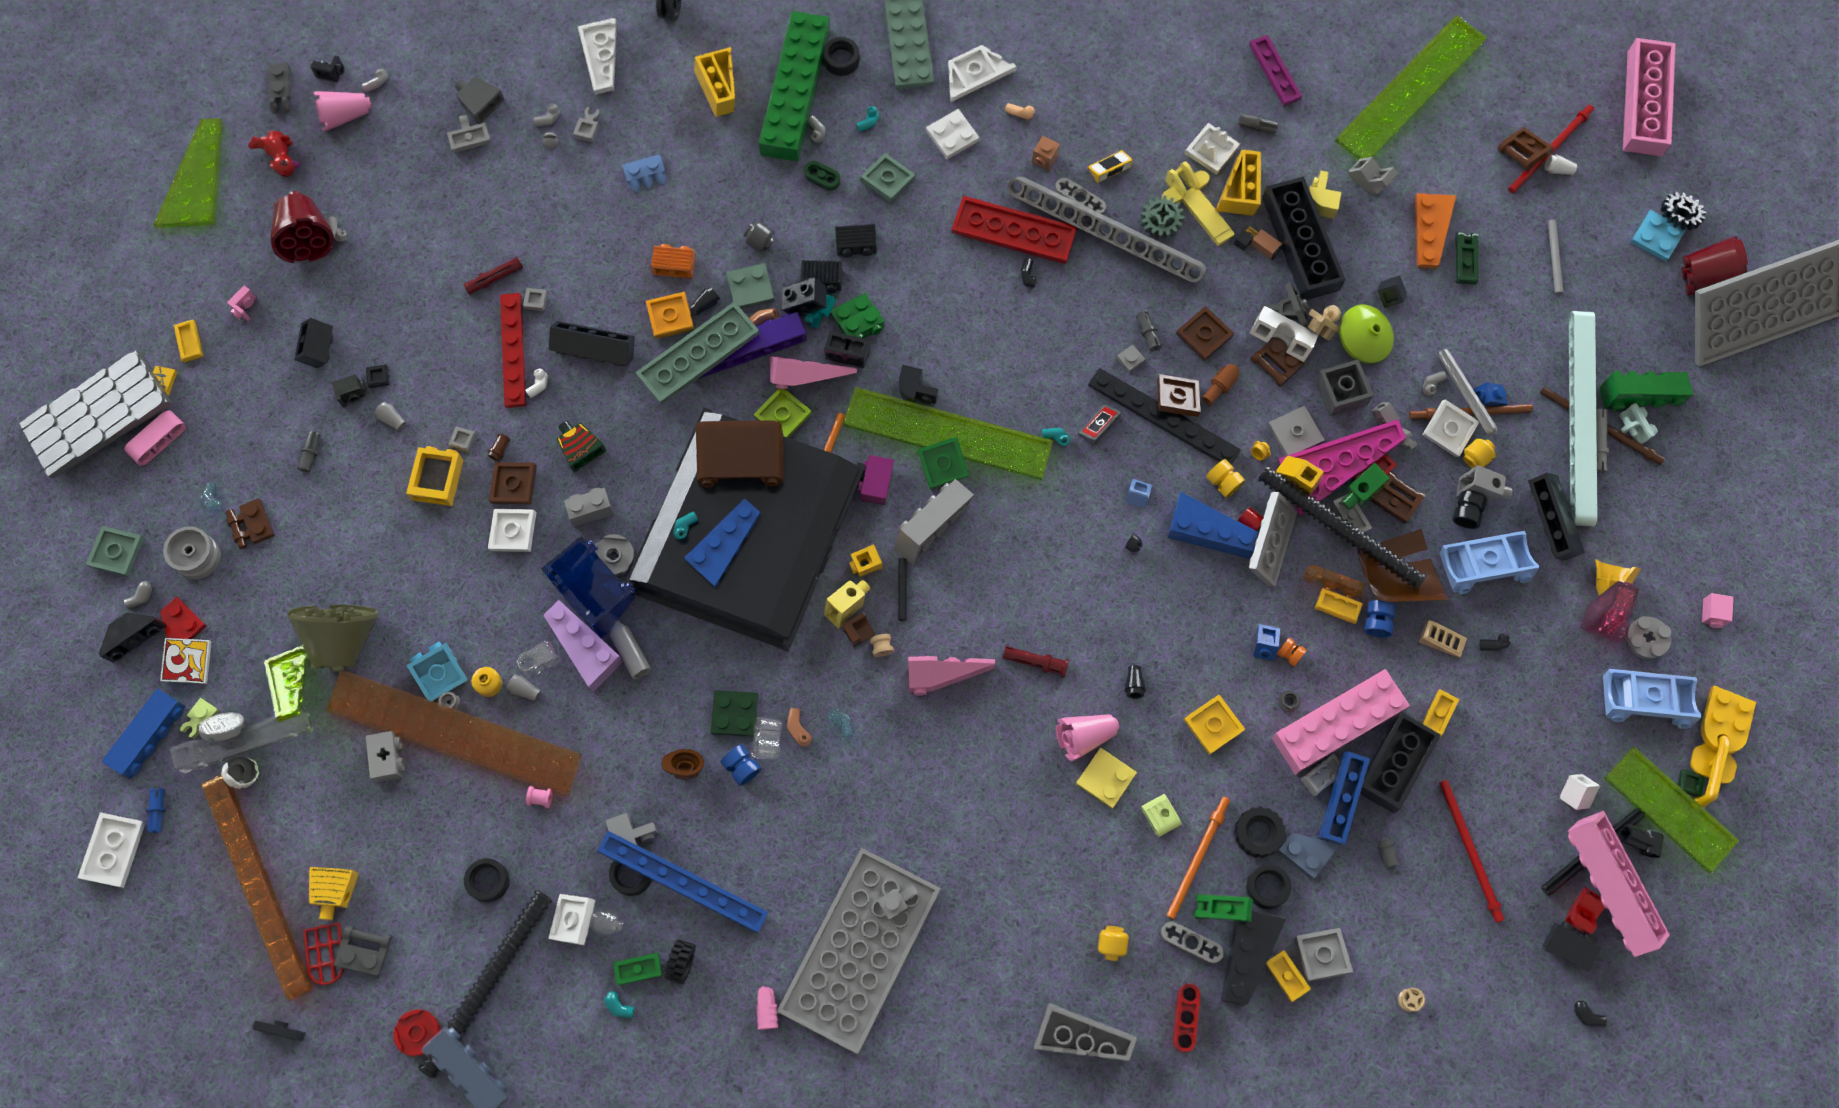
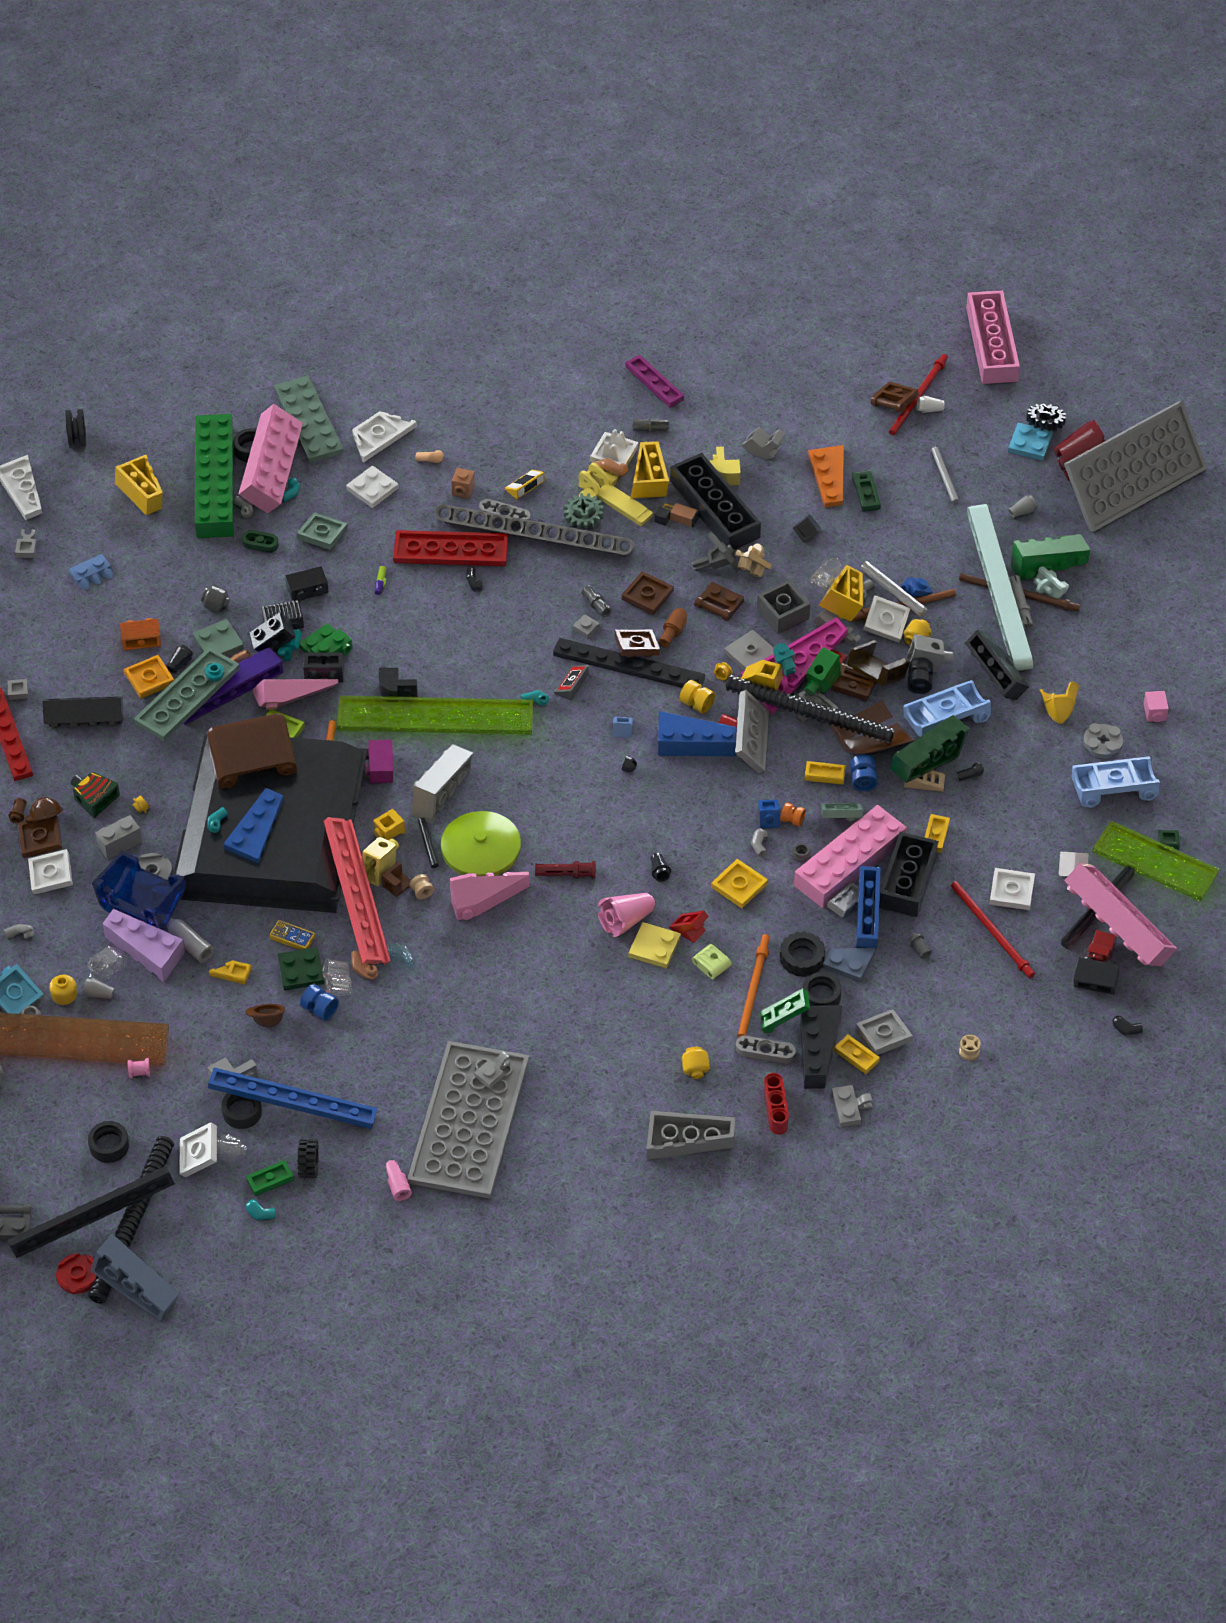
camera: 15 degrees left, 20 degrees down
(436, 972) = (91, 1212): none -> black plate
(465, 593) = (19, 929): none -> light grey arm
(522, 456) = (43, 809): none -> reddish brown piece
(540, 383) = (41, 754): white arm -> none
(622, 470) = (140, 804): none -> yellow plate
(665, 698) = (233, 971): none -> yellow tile
(730, 341) = (214, 671): none -> teal plate
(735, 670) = (292, 935): none -> tile
(810, 642) = (357, 891): none -> coral plate
(855, 81) = (270, 458): none -> bright pink brick
(933, 251) = (381, 580): none -> piece
(943, 462) = (437, 736): green tile -> none
(956, 605) = (480, 844): none -> lime dish
(1148, 764) = (690, 925): none -> red slope
(1204, 168) = (611, 466): none -> nougat arm
(1246, 673) = (756, 841): none -> light grey arm
(1262, 1037) = (848, 1105): none -> light grey plate
(1297, 337) = (730, 577): white arch -> none
(1329, 462) = (785, 657): none -> teal hips
(1334, 581) = (815, 753): clear orange plate -> none
(1344, 663) = (850, 811): none -> sand green plate
(1359, 337) = (791, 562): lime dish -> none
(1397, 358) = (826, 574): none -> clear piece
(1411, 89) = (780, 372): clear neon green plate -> none
(1414, 389) = (845, 594): none -> yellow wedge
(1424, 488) = (863, 661): none -> dark brown panel
(1458, 613) = (930, 750): none -> dark green wedge
(1505, 806) = (1012, 889): none -> white plate
(1611, 611) = (1062, 721): clear pink wedge -> none
(1633, 318) = (1023, 507): none -> light grey cone
(1646, 841) = (1141, 887): black piece -> none
(1729, 719) = (1185, 793): yellow plate -> none

